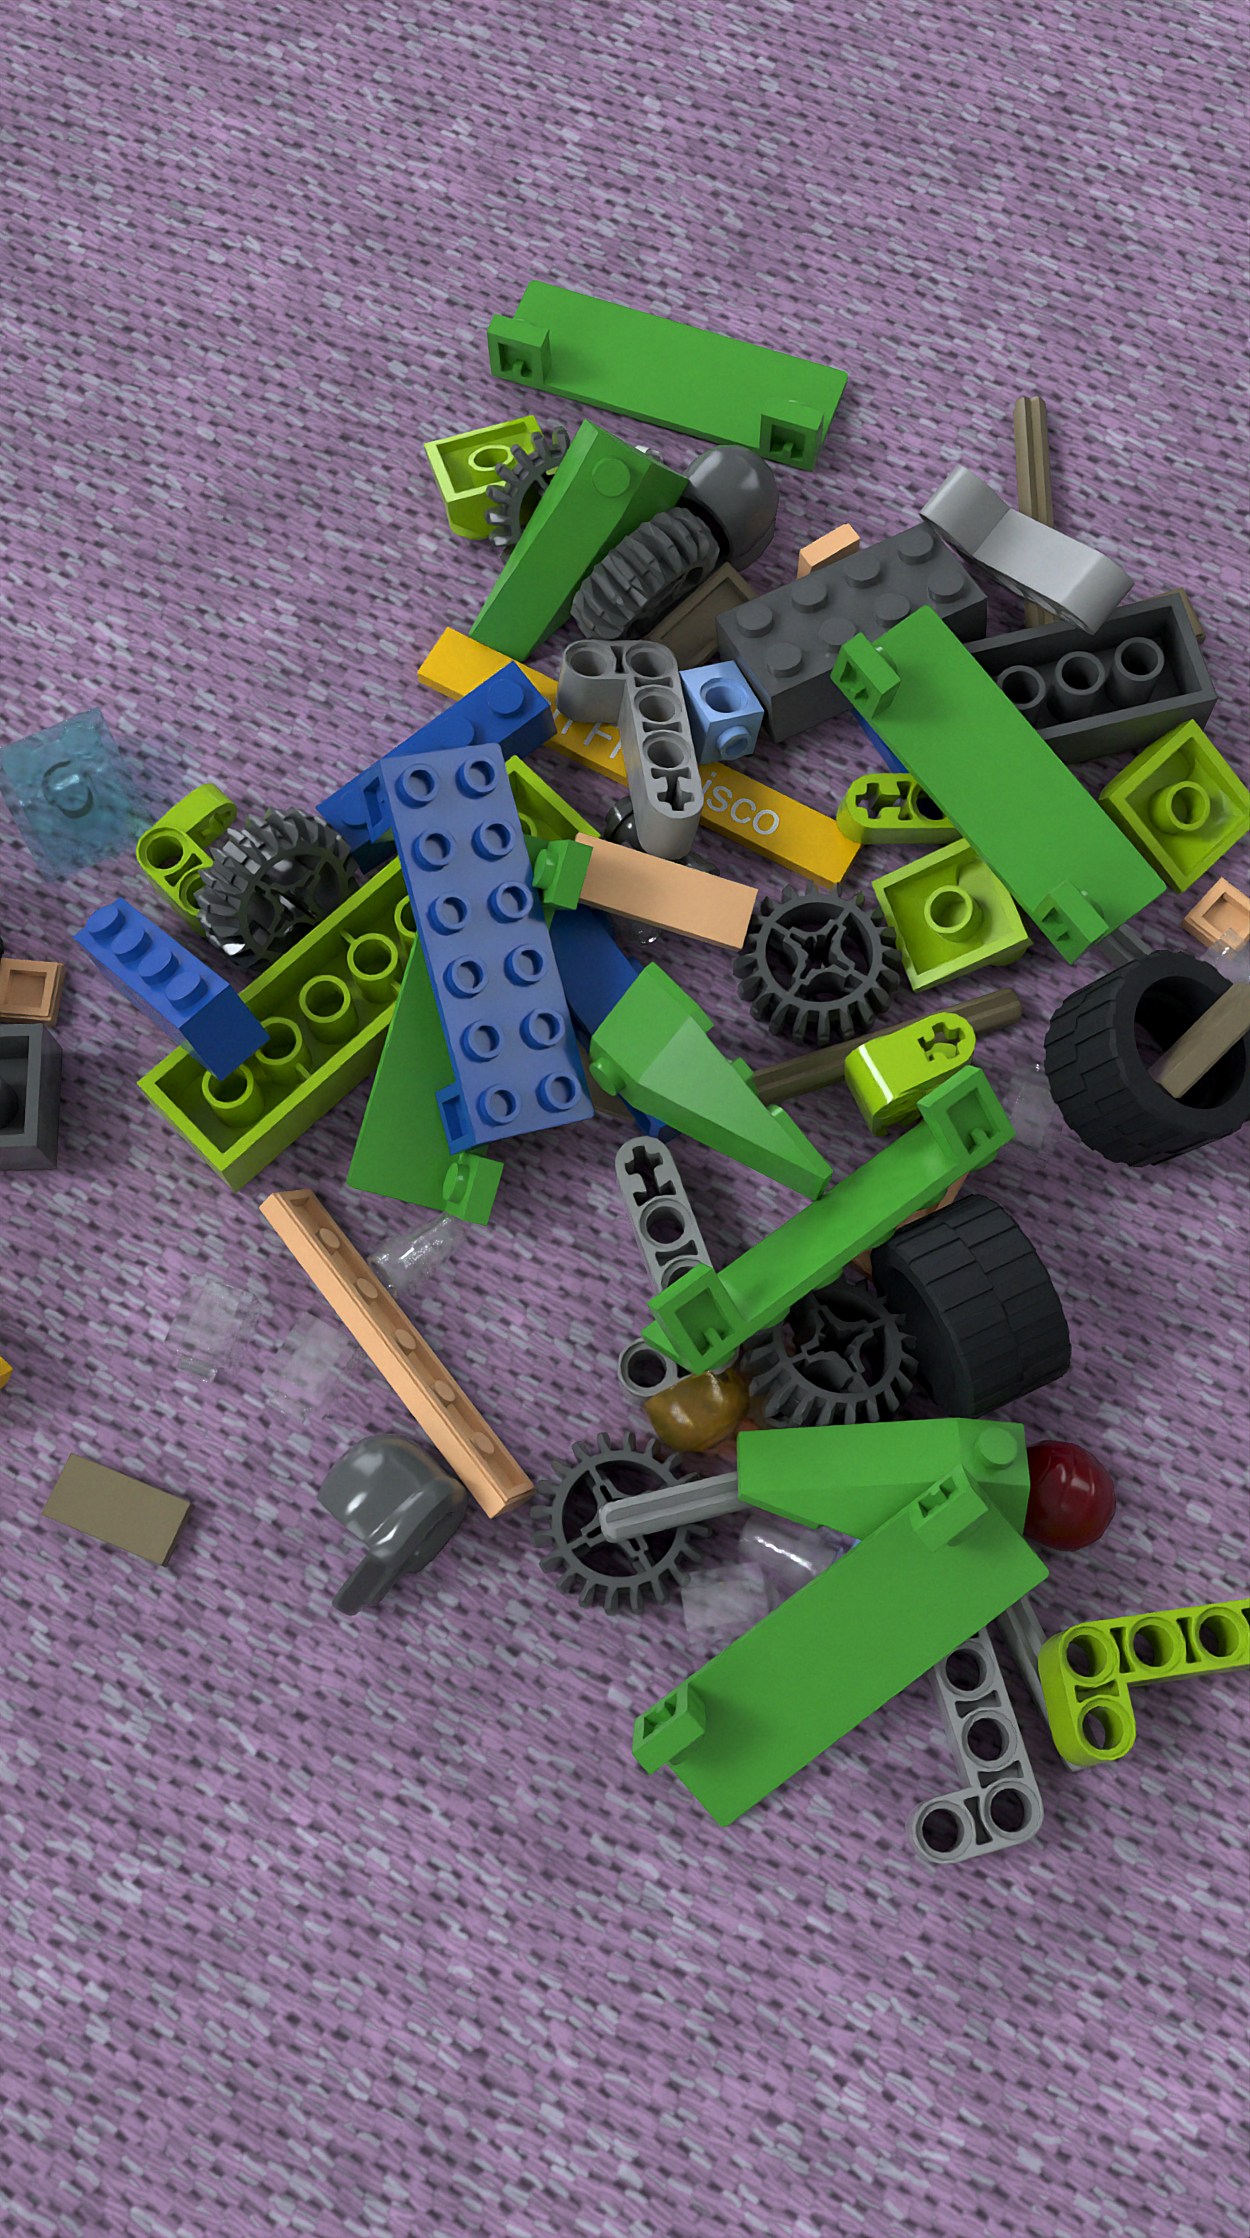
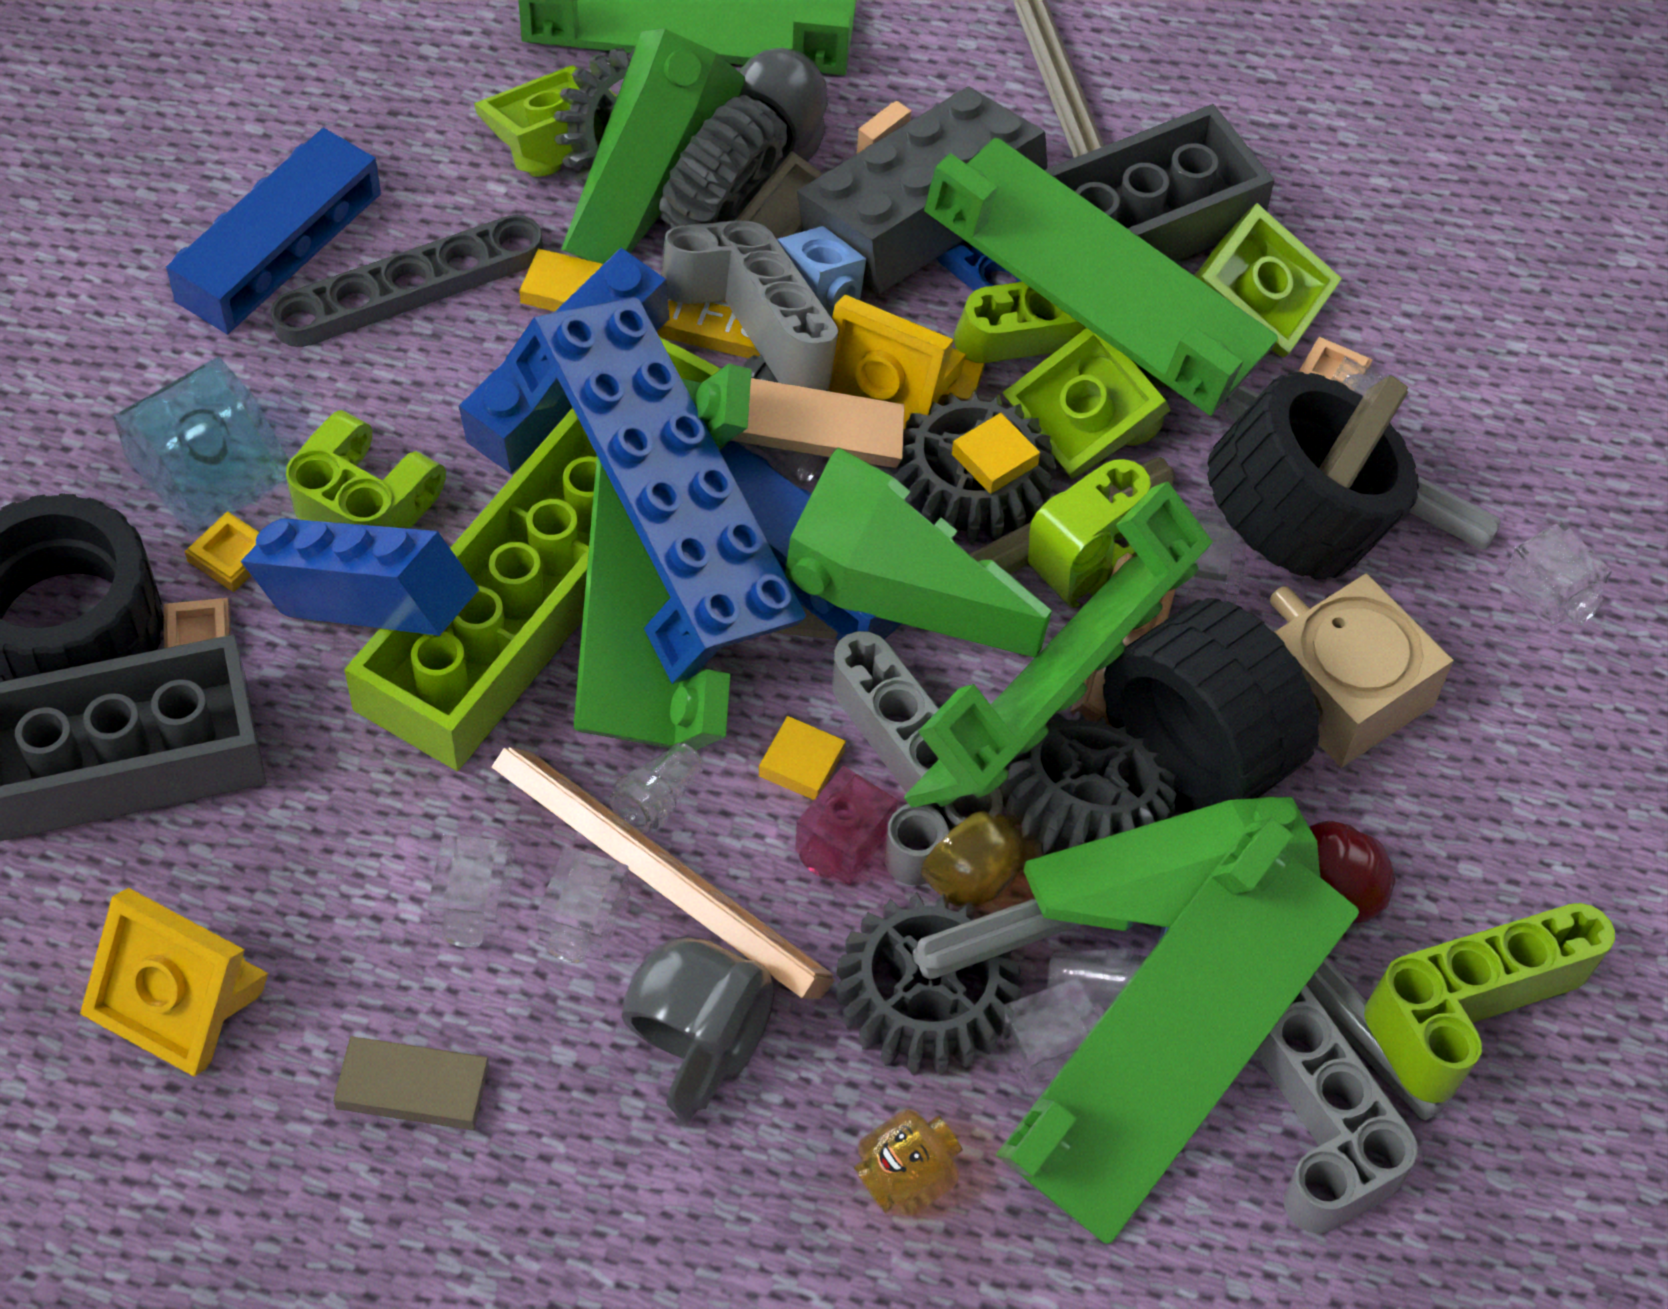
camera: 20 degrees left, 15 degrees down
(70, 906) = (221, 549): none -> yellow tile
(194, 559) = (274, 230): none -> blue brick
(280, 852) = (437, 468): dark grey gear -> none
(285, 630) = (387, 299): none -> dark grey beam
(551, 1706) = (908, 1162): none -> clear yellow head
(565, 1249) = (802, 758): none -> yellow tile
(582, 1339) = (844, 826): none -> clear pink brick
(759, 833) = (891, 358): none -> yellow bracket
(835, 965) = (995, 453): none -> yellow tile
(1024, 553) = (1071, 97): light grey beam -> none
(1137, 1273) = (1364, 663): none -> tan piece

